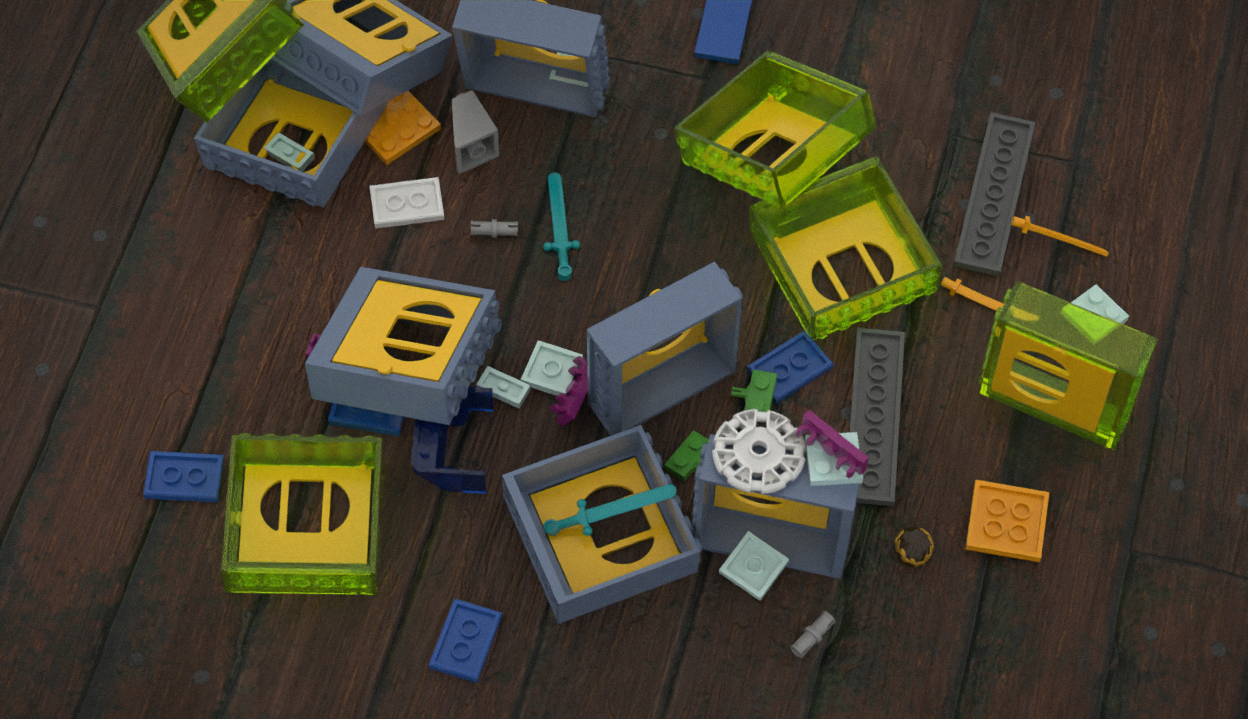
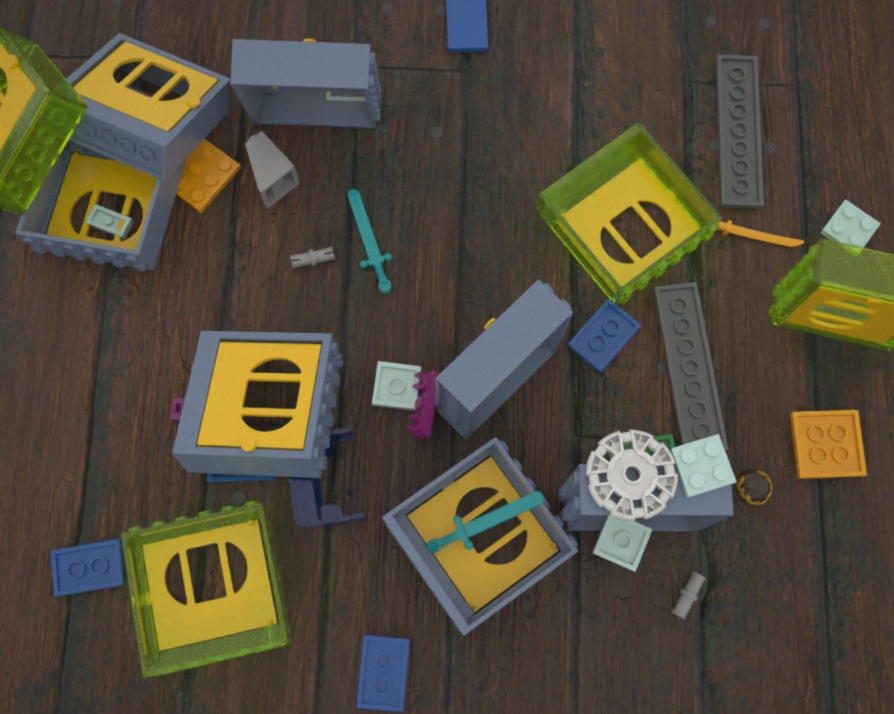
camera: 15 degrees left, 15 degrees up
(406, 202) = (227, 247): white tile -> none
(504, 387) = (357, 413): light aqua plate -> none
(686, 457) = (539, 444): bright green plate -> none
(759, 391) = (584, 371): bright green plate -> none
(783, 101) = (546, 84): clear neon green door -> none
(833, 444) = (705, 459): magenta plate -> none
(1026, 225) = (774, 156): light orange sword -> none

